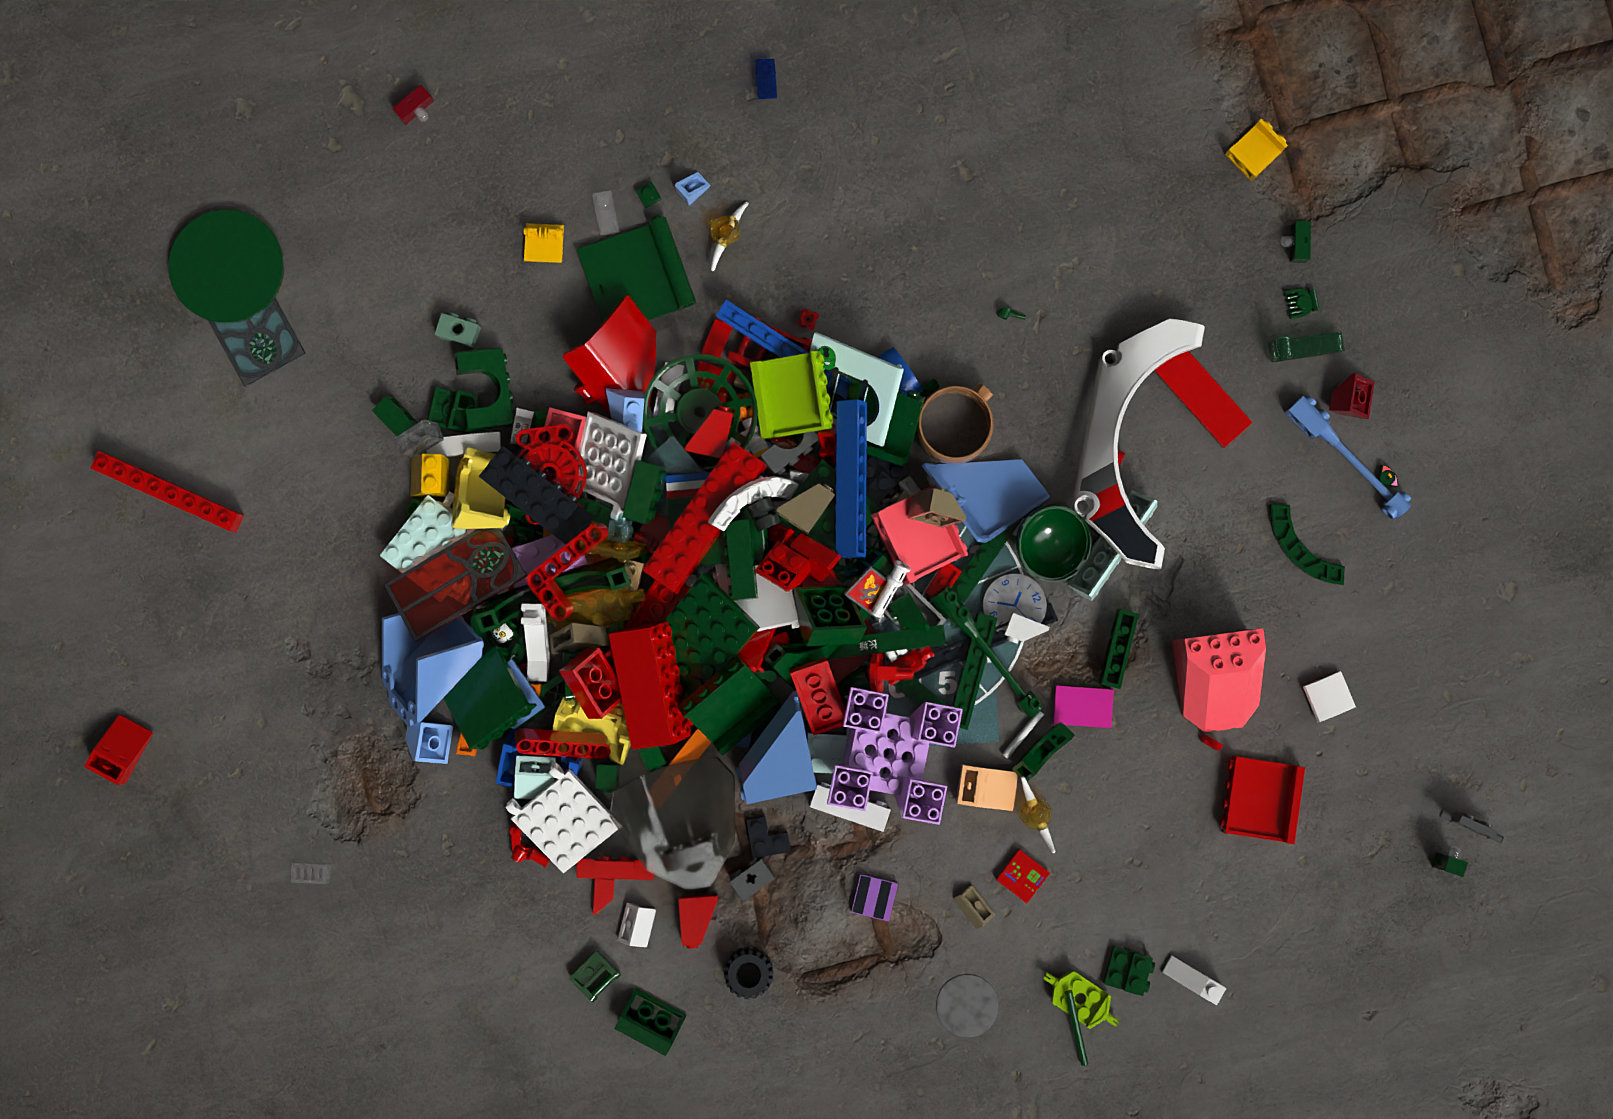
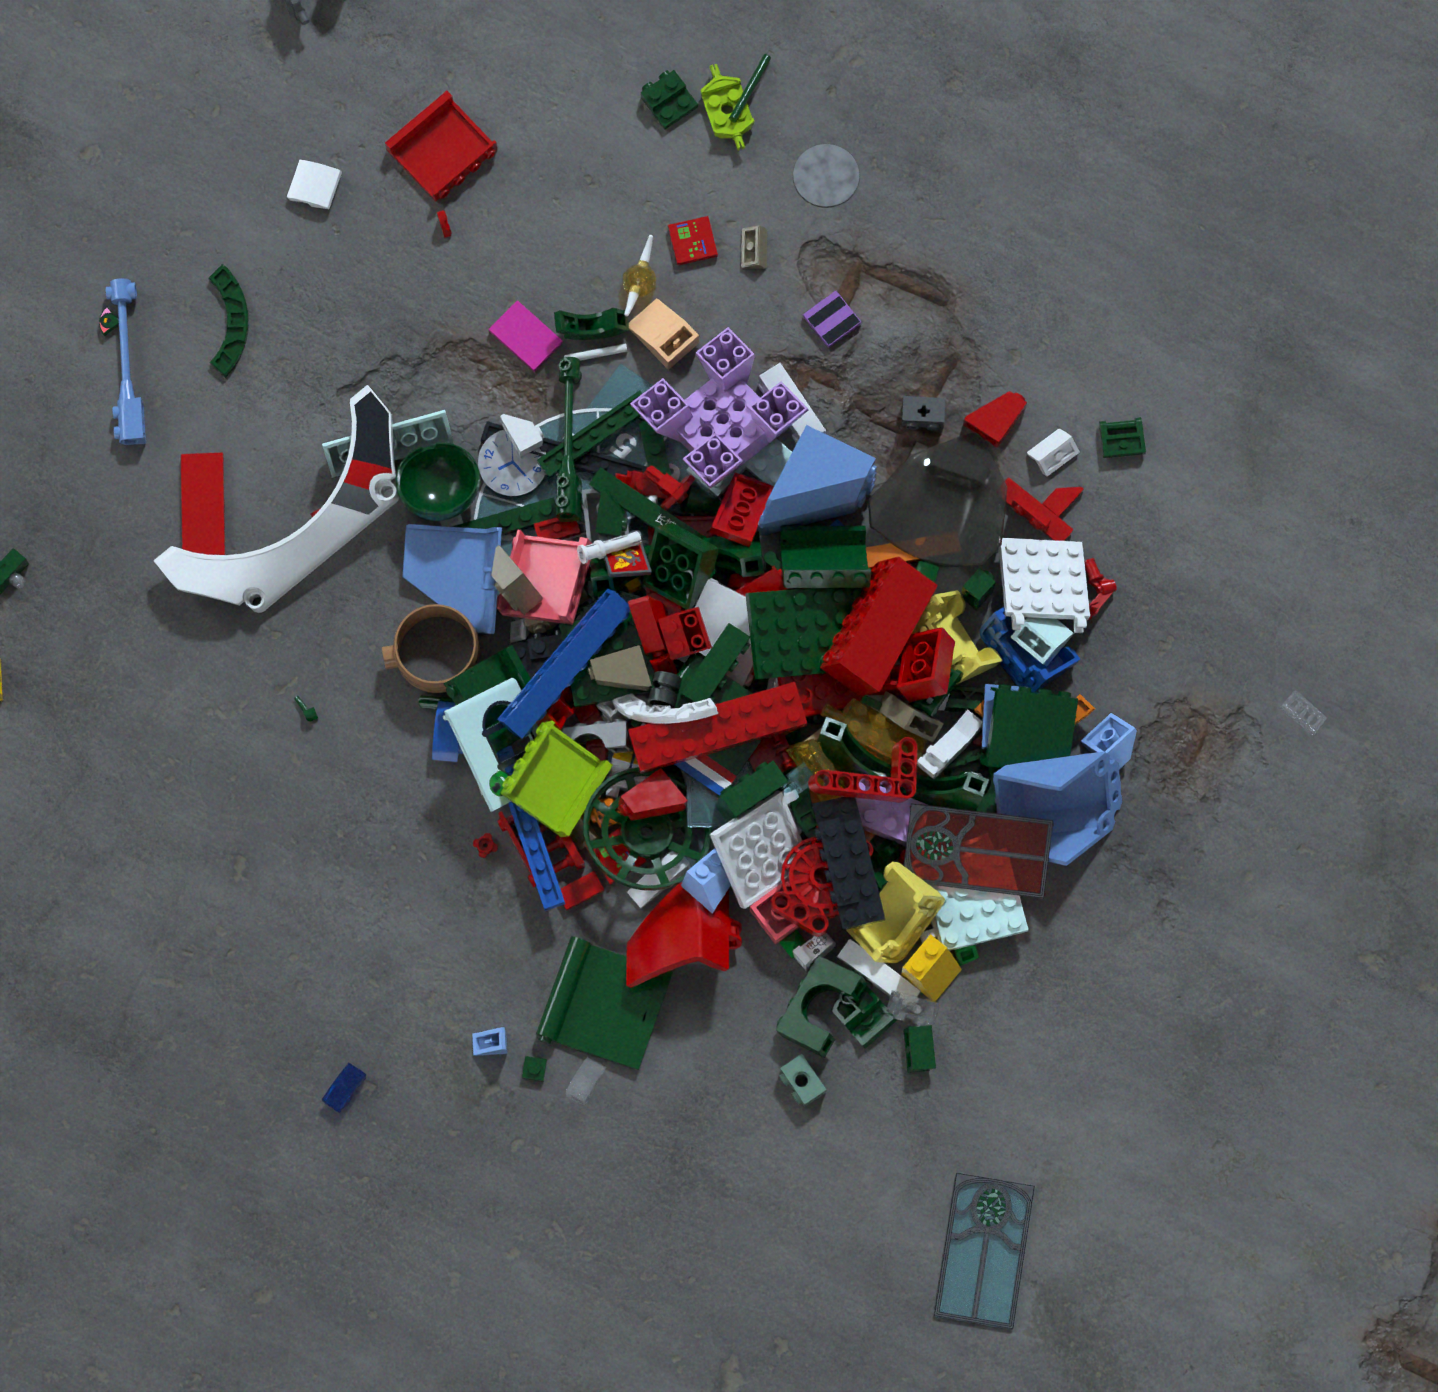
camera: 140 degrees left, 10 degrees down
(119, 750) = (1392, 946): red slope -> none
(167, 491) = (1176, 1142): red brick -> none
(226, 266) = (966, 1308): dark green tile -> none
(414, 106) = (679, 1318): dark red piece -> none
(543, 243) = (662, 1100): yellow hinge -> none
(575, 743) = (995, 643): red beam -> none
(650, 1022) = (1104, 364): dark green slope -> none
(725, 232) = (493, 976): clear yellow helmet -> none
(745, 989) = (993, 323): black tyre -> none
(764, 844) = (889, 434): black plate -> none
(1118, 648) = (456, 356): dark green brick -> none
(1194, 980) = (621, 50): white slope -> none
(1220, 678) = (394, 263): coral windscreen -> none
(1304, 347) = (98, 489): clear green beam -> none
(1305, 302) = (47, 520): dark green piece -> none
(1353, 397) = (79, 406): dark red slope -> none

